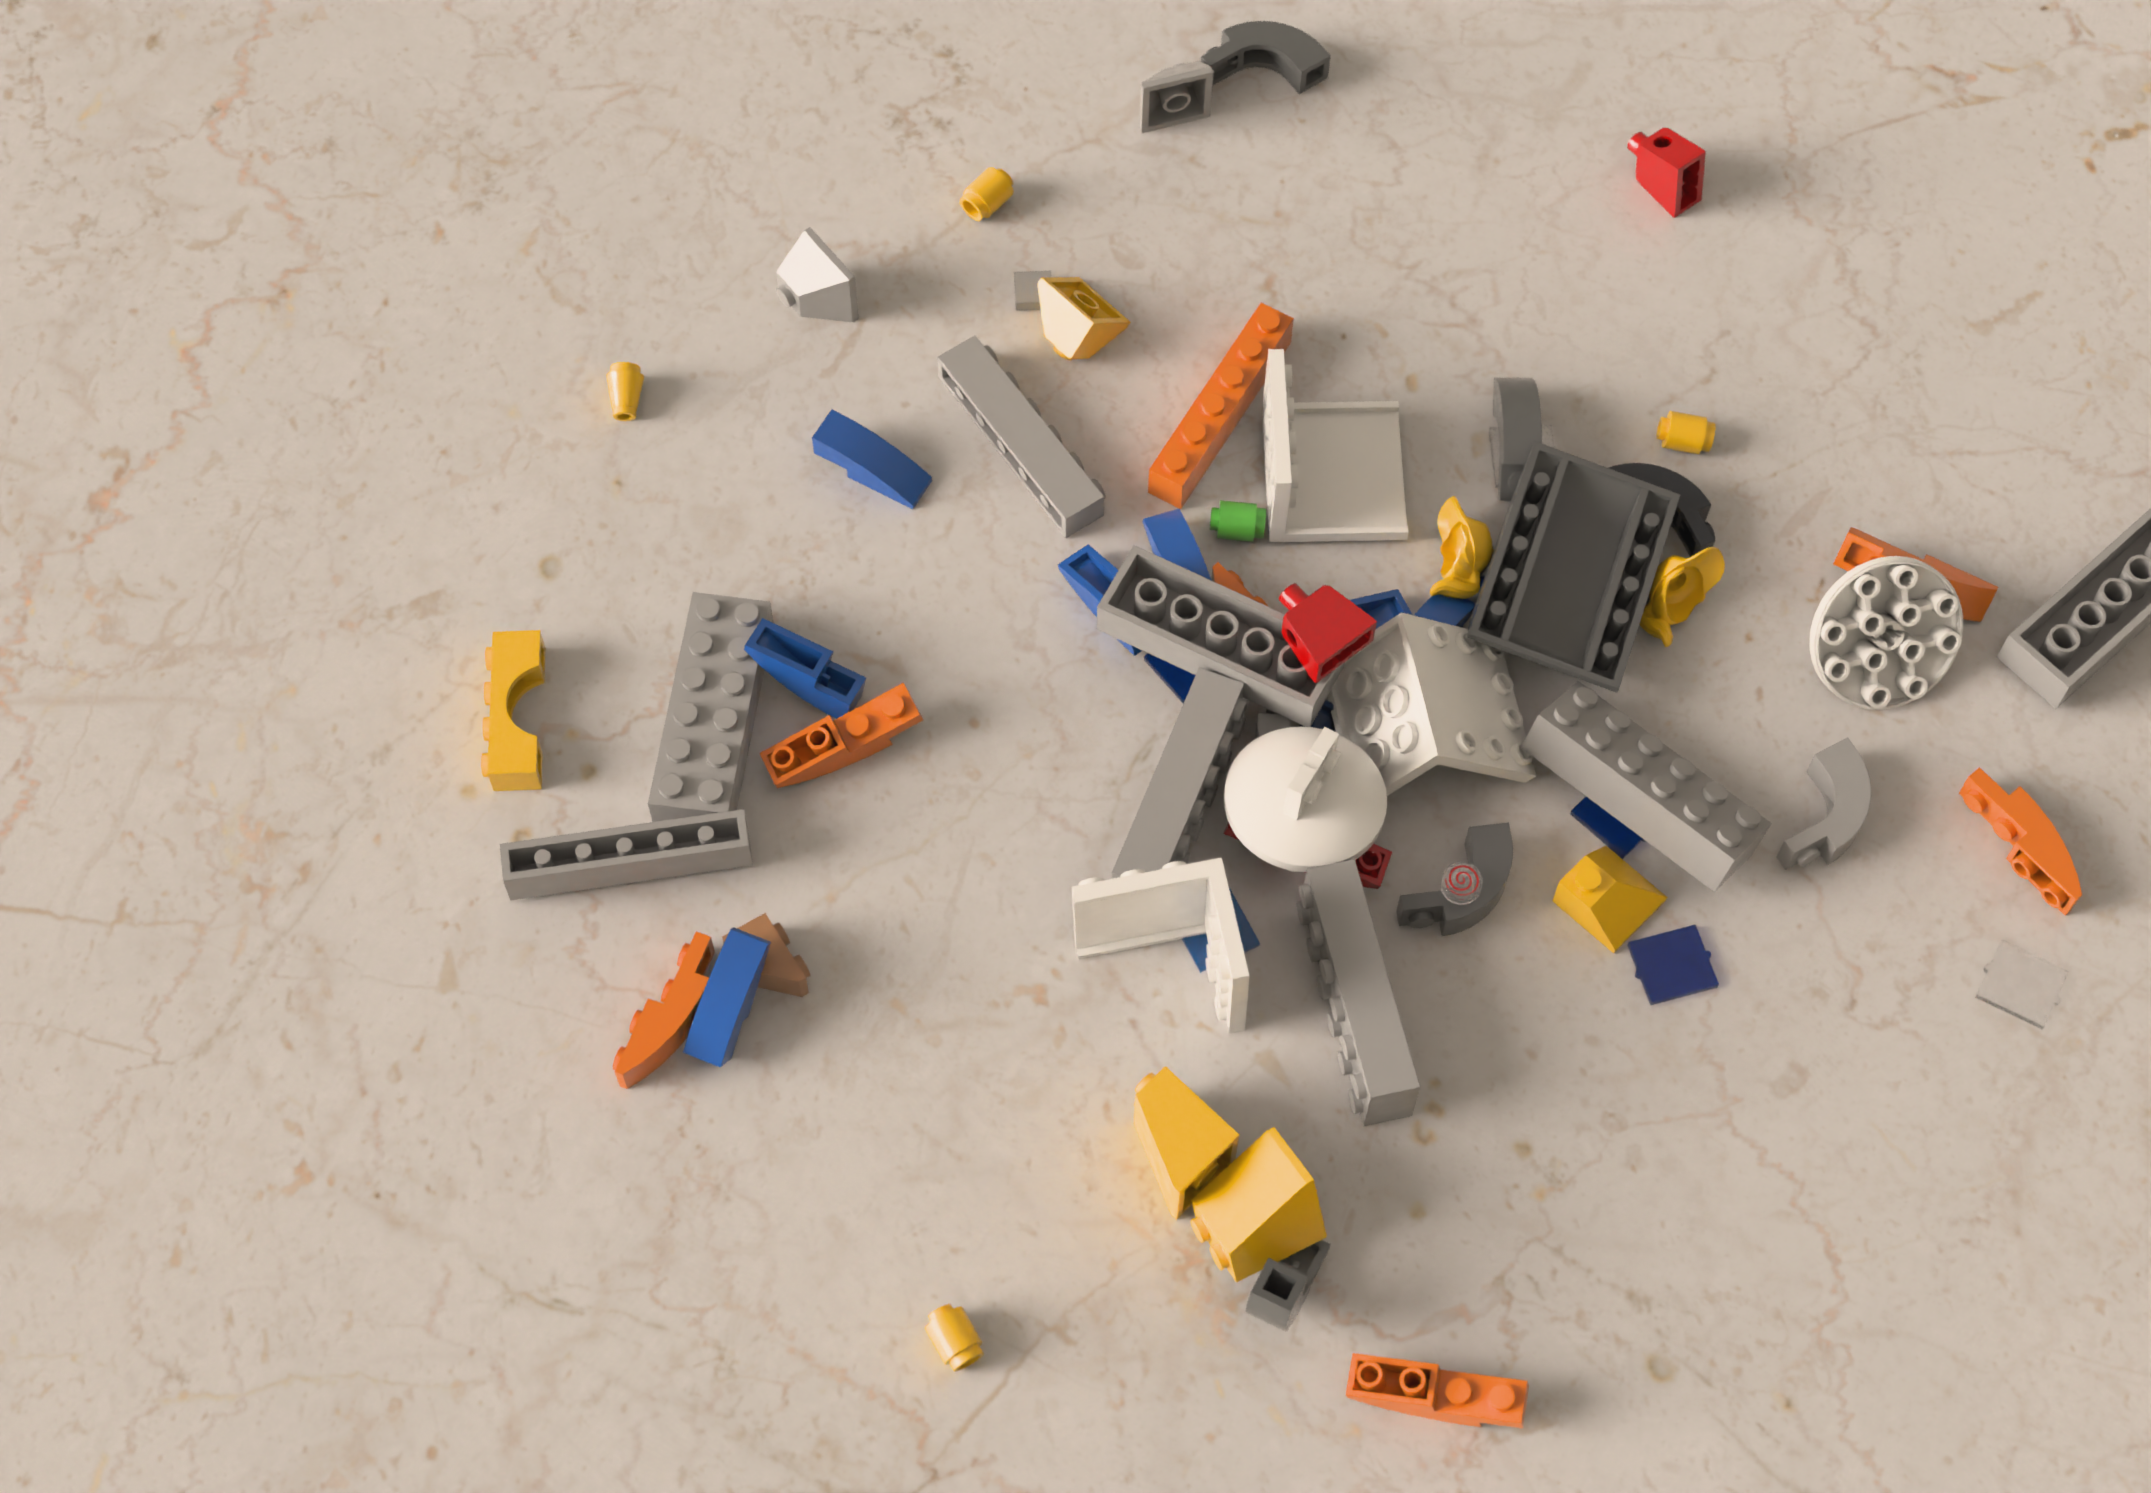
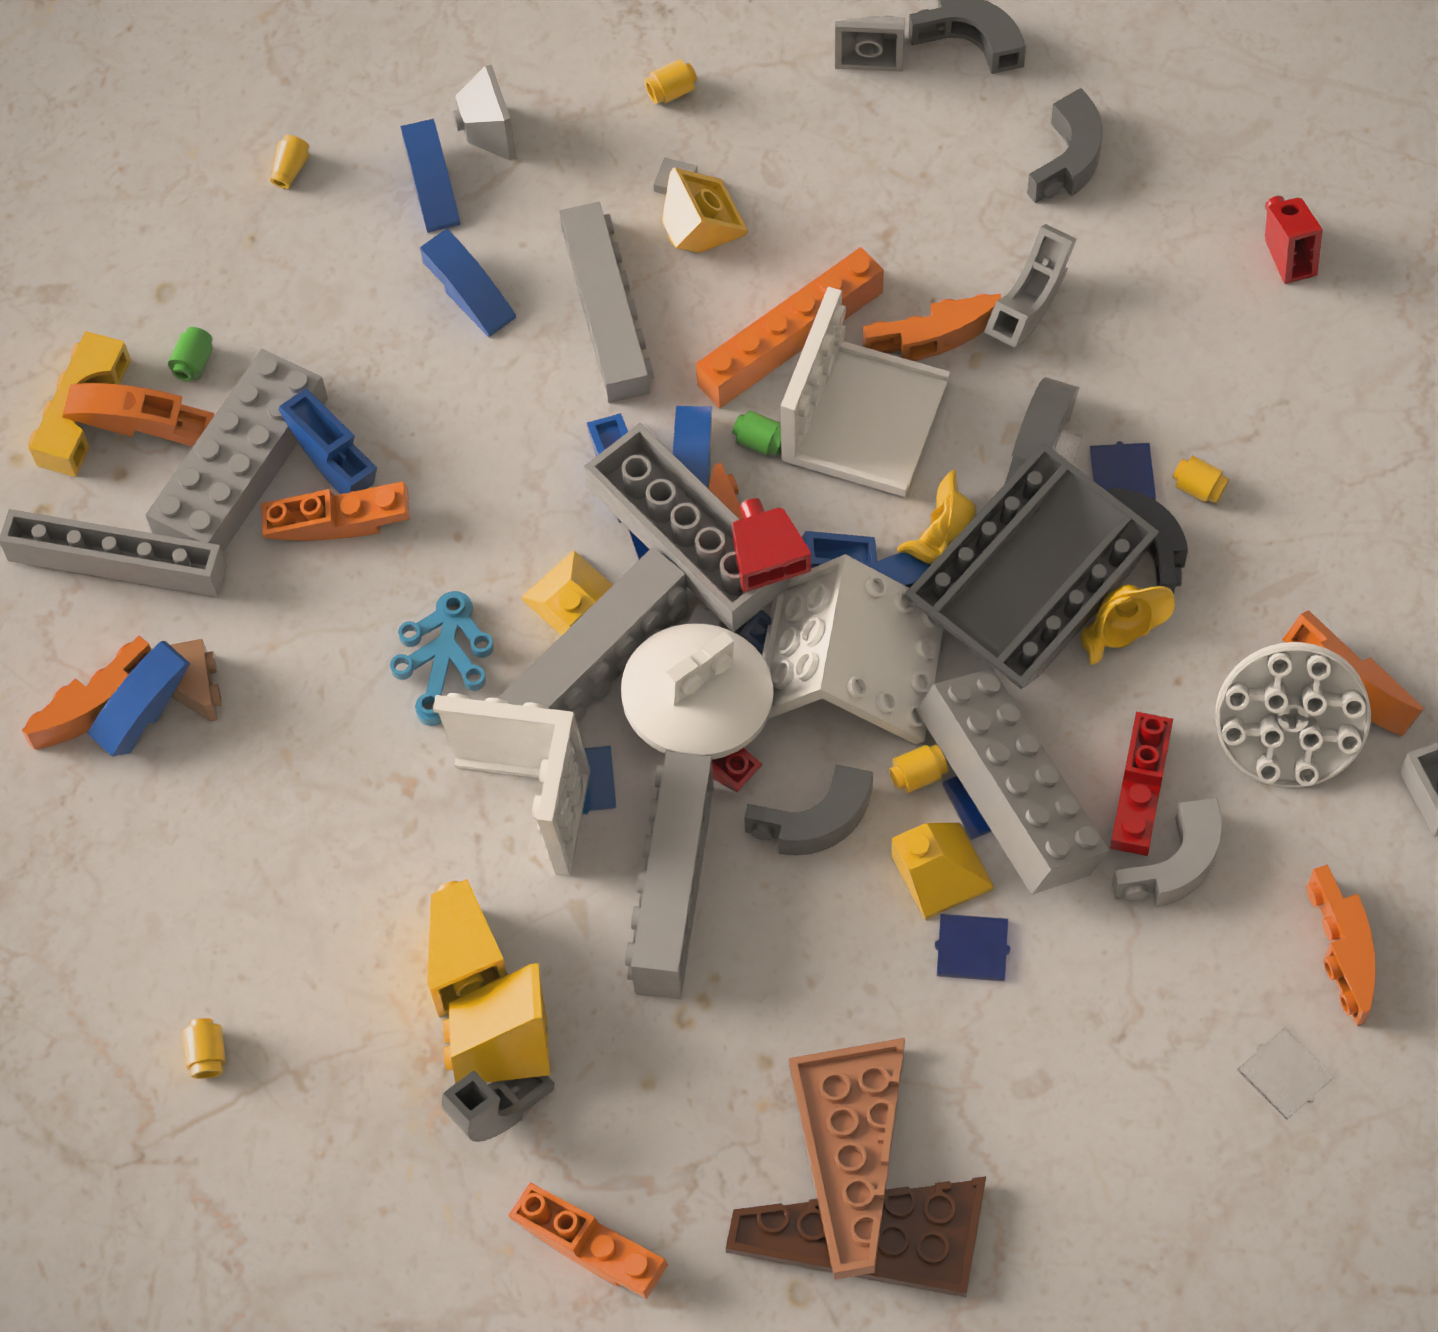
camera: 25 degrees right, 0 degrees up
(585, 696) = (133, 409): none -> orange slope
(612, 622) = (191, 354): none -> bright green brick
(782, 361) = (430, 175): none -> blue slope
(1016, 843) = (442, 650): none -> dark azure plant
(1121, 747) = (567, 592): none -> yellow slope
(1371, 360) = (946, 328): none -> orange slope
(1421, 126) = (1081, 127): none -> dark grey arch
(1444, 291) = (1031, 296): none -> light grey arch
(1461, 883) = (804, 810): clear tile -> none
(1545, 804) = (918, 768): none -> yellow brick
(1604, 442) = (1123, 467): none -> clear blue piece
(1644, 1189) = (848, 1128): none -> nougat wing
(1723, 1279) = (922, 1240): none -> reddish brown wing
(1764, 748) = (1141, 783): none -> red slope

